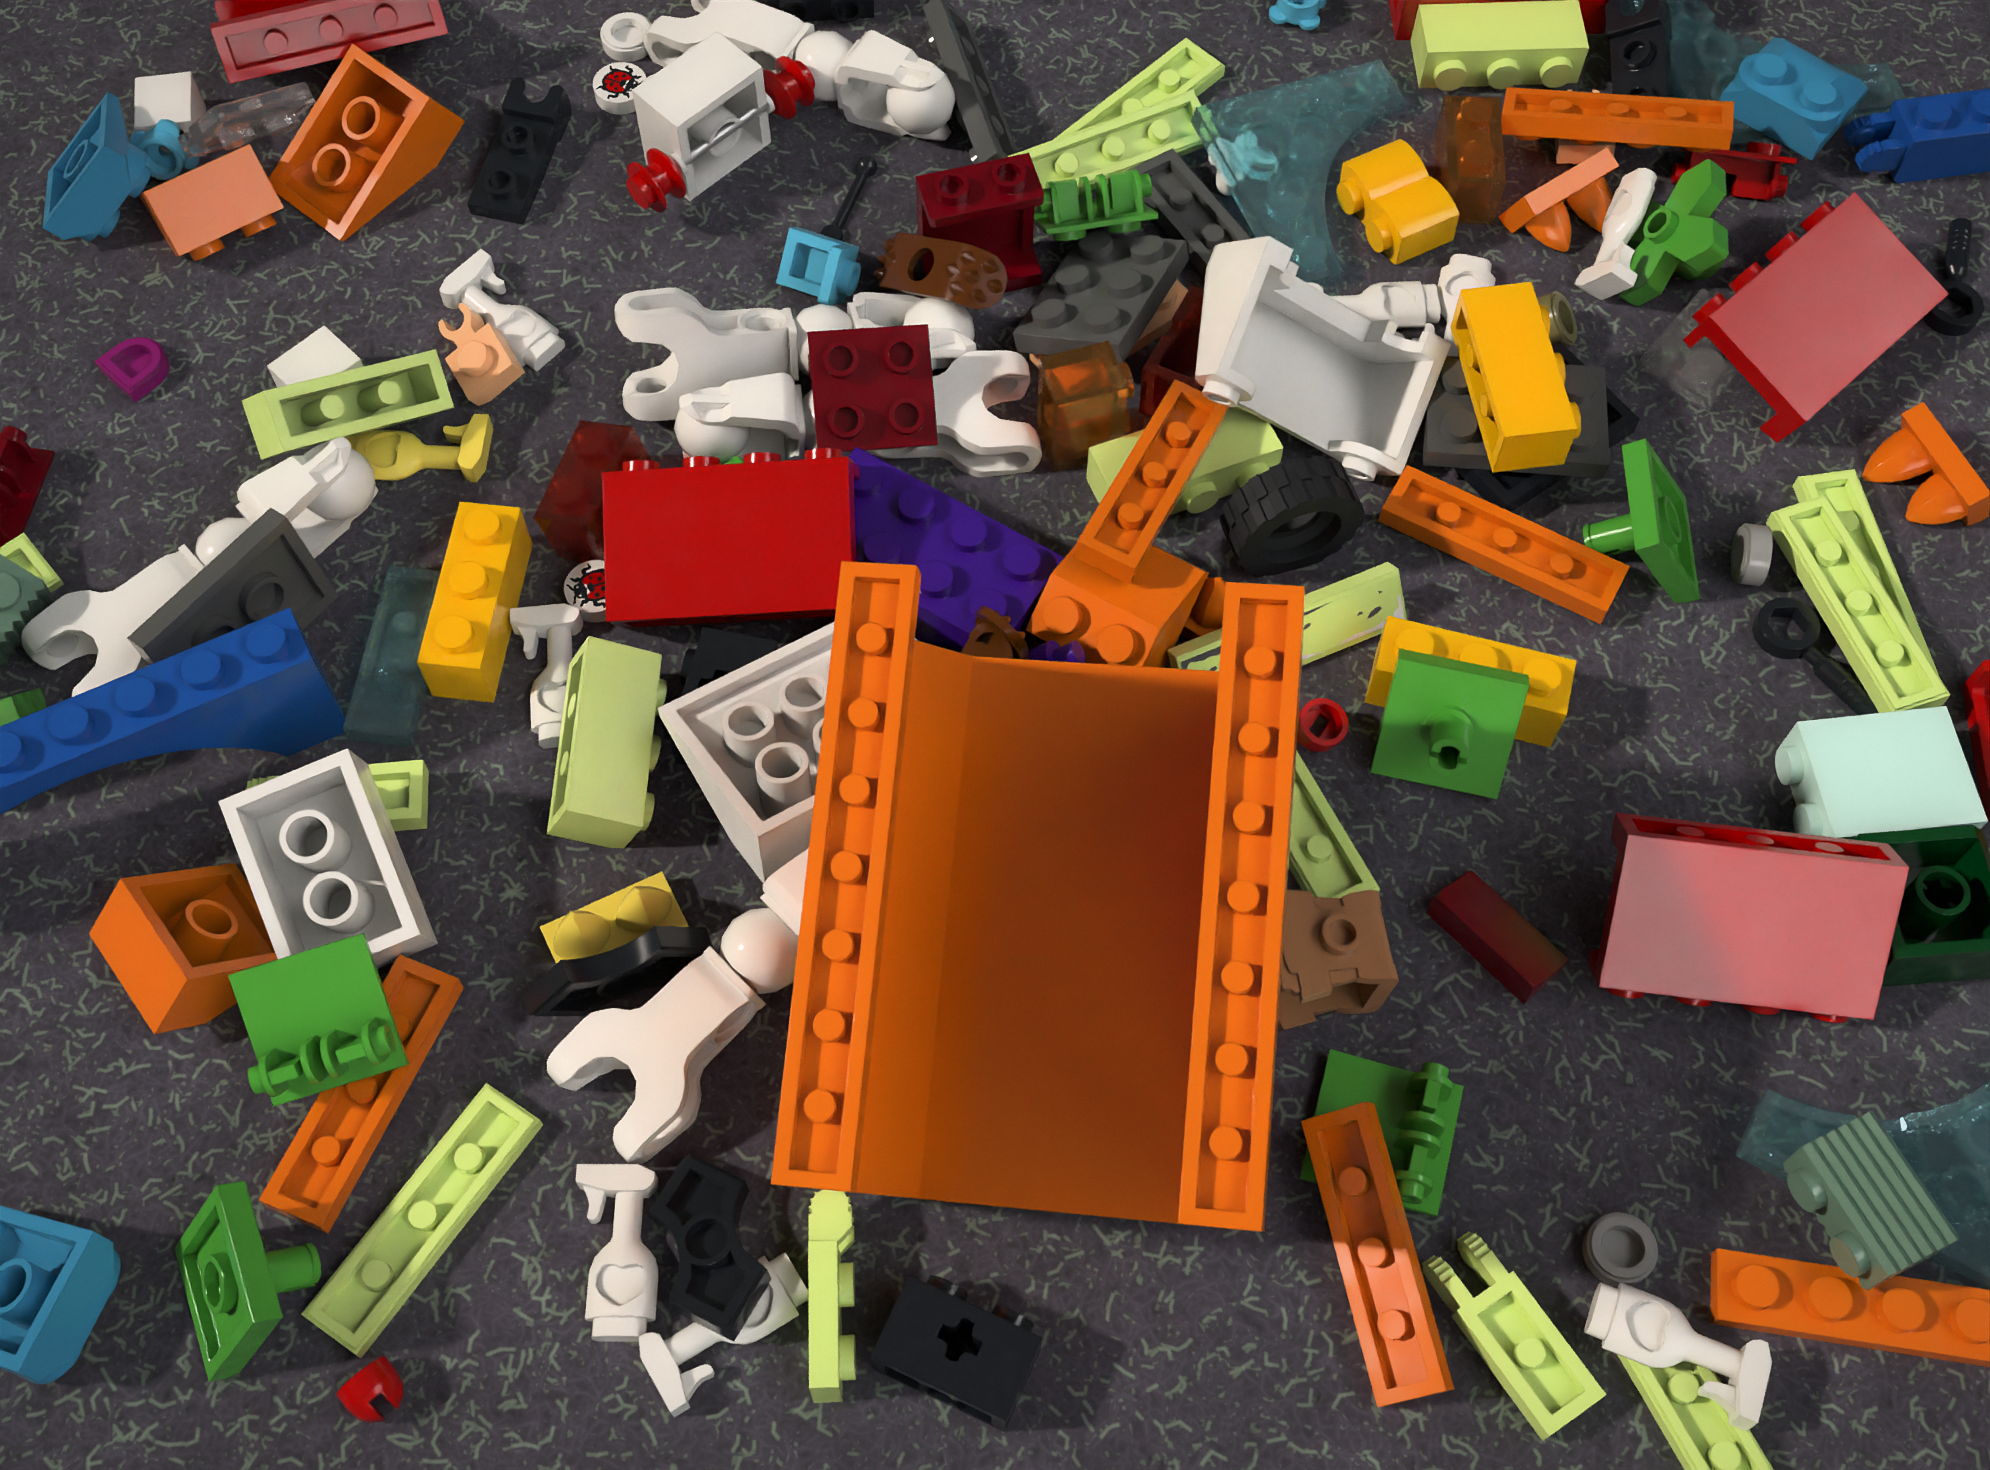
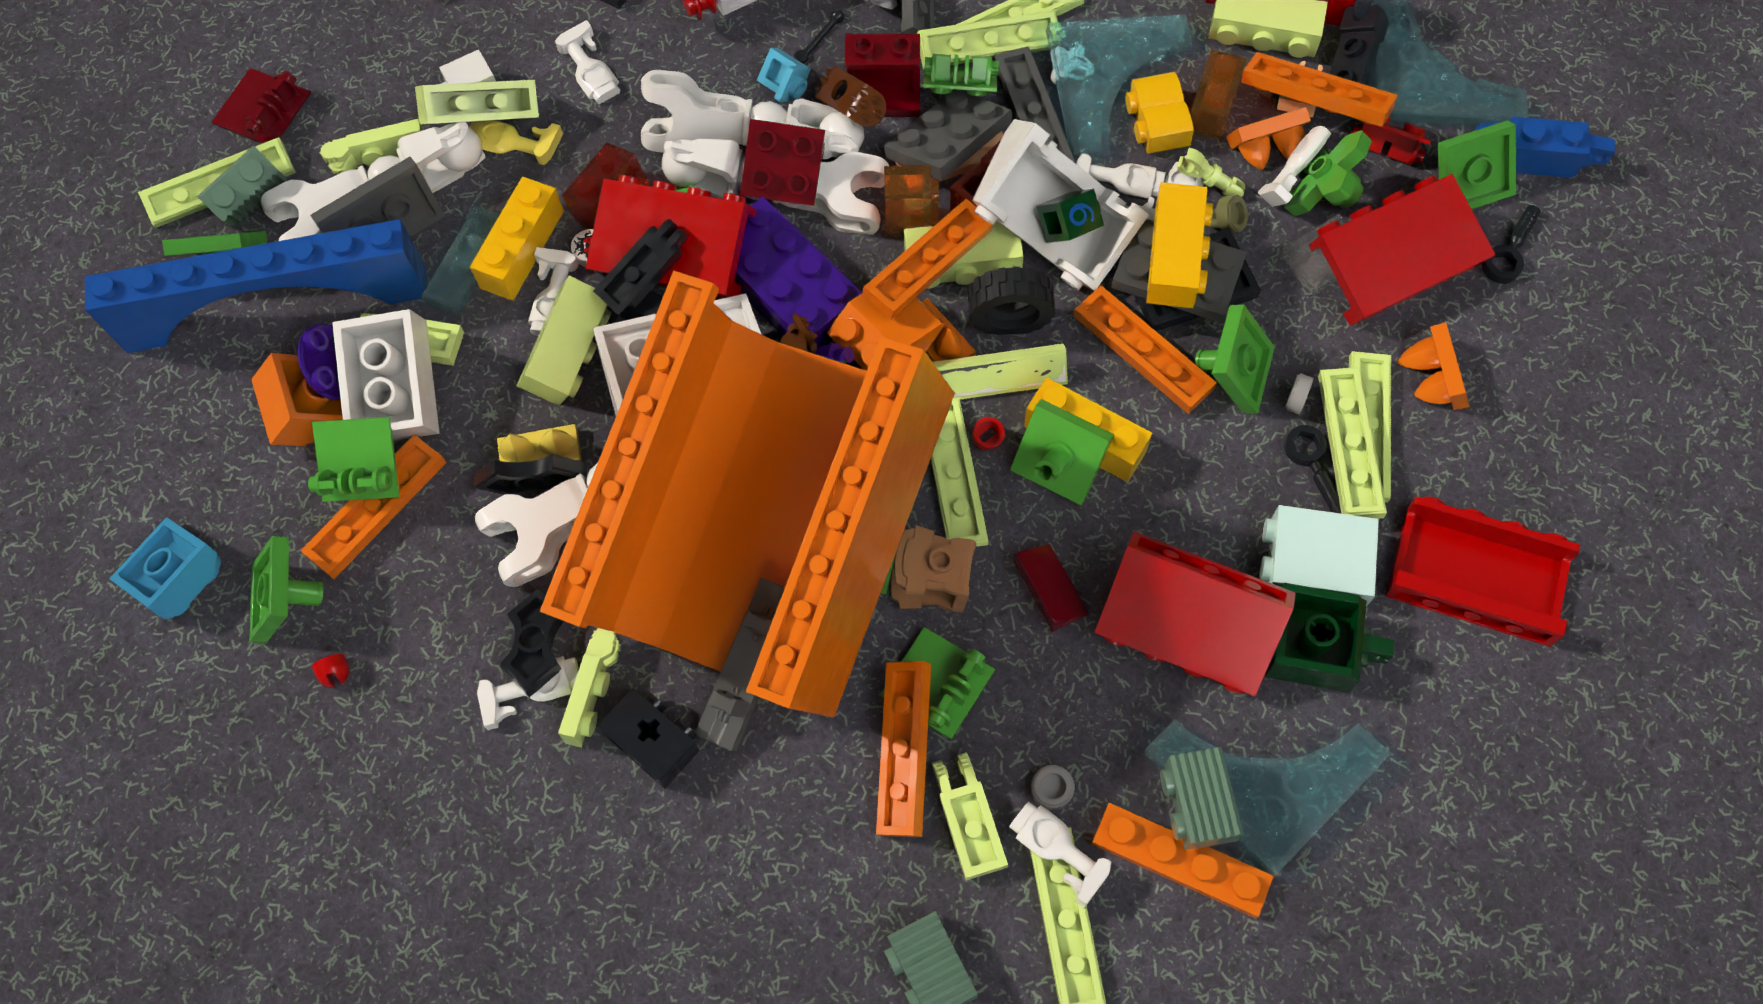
camera: 20 degrees right, 5 degrees up
(135, 366) = (370, 49): magenta tile -> none
(179, 514) = (366, 146): none -> yellowish green hinge
(211, 871) = (319, 361): none -> dark purple dish
(422, 1220) = (386, 585): yellowish green tile -> none
(482, 357) = (568, 89): light nougat plate -> none
(625, 1271) = (485, 643): white piece -> none
(707, 597) = (641, 268): none -> black hinge
(1083, 1186) = (726, 716): none -> dark grey hinge
(1335, 371) = (1070, 215): none -> dark green brick
(1507, 270) = (1197, 166): none -> yellowish green piece
(1793, 96) = (1447, 97): dark azure slope -> none
(1880, 165) = (1482, 163): none -> bright green tile

